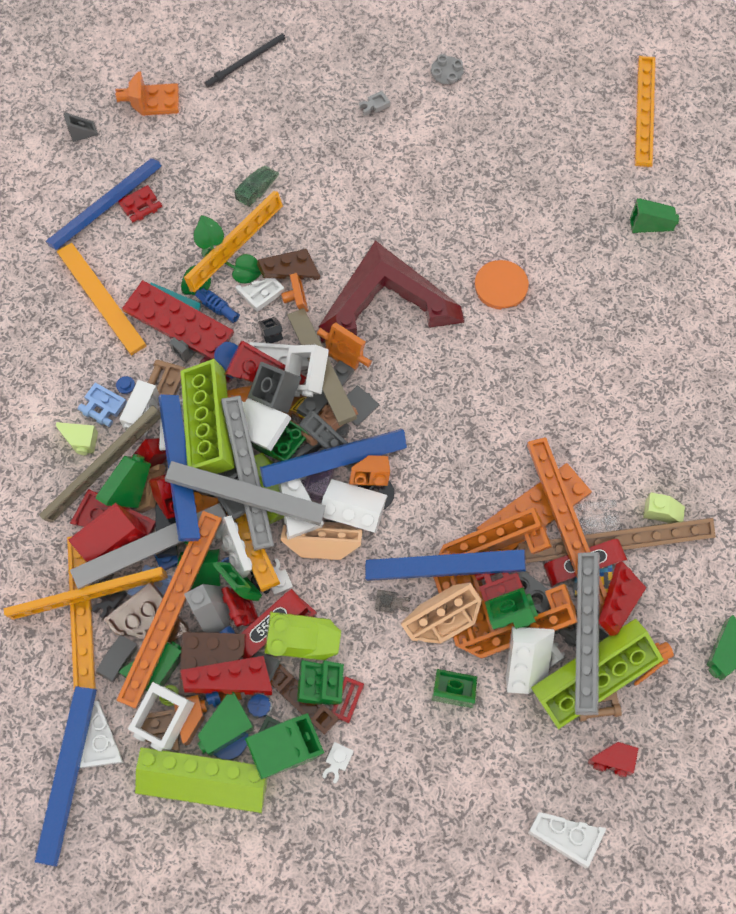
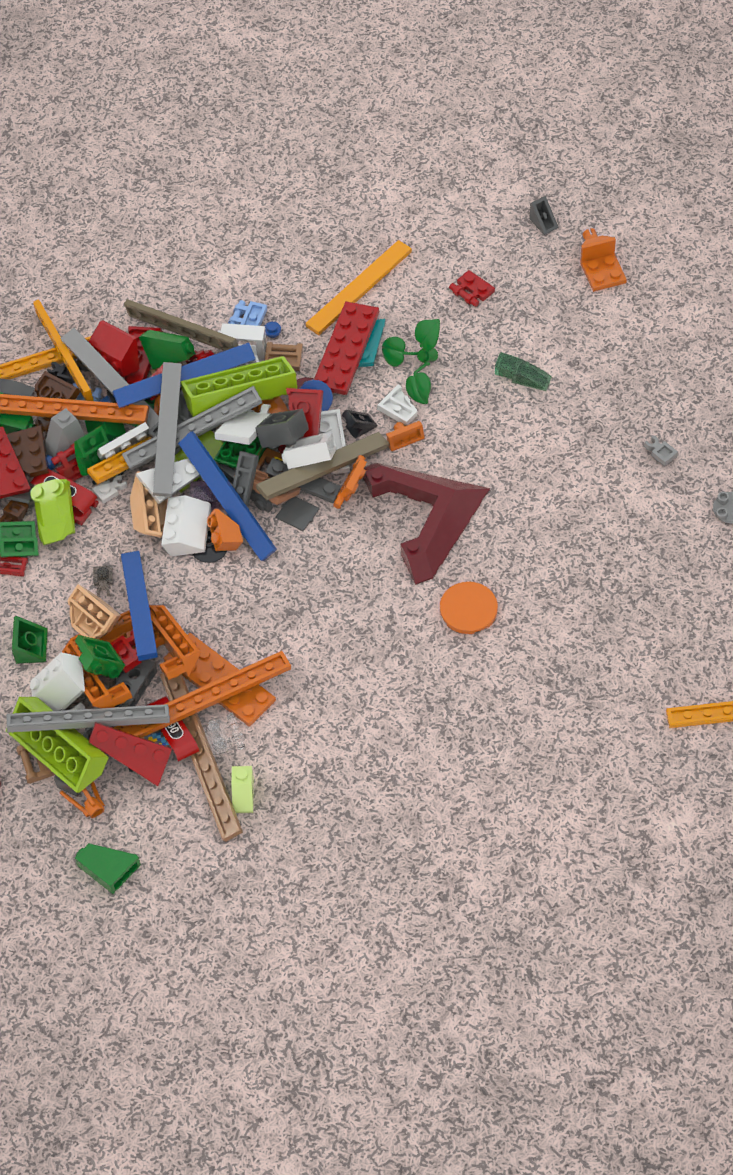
camera: 80 degrees right, 10 degrees down
(80, 437) = (209, 309): yellowish green slope -> none
(103, 204) = (463, 260): blue tile -> none
(181, 349) = (314, 357): dark grey bracket -> none
(217, 304) = (375, 374): blue hinge -> none
(220, 75) = (650, 312): black bar -> none
(233, 241) = (444, 367): light orange tile -> none
(289, 263) = (436, 423): reddish brown wing -> none
(652, 217) = (590, 729): green slope -> none

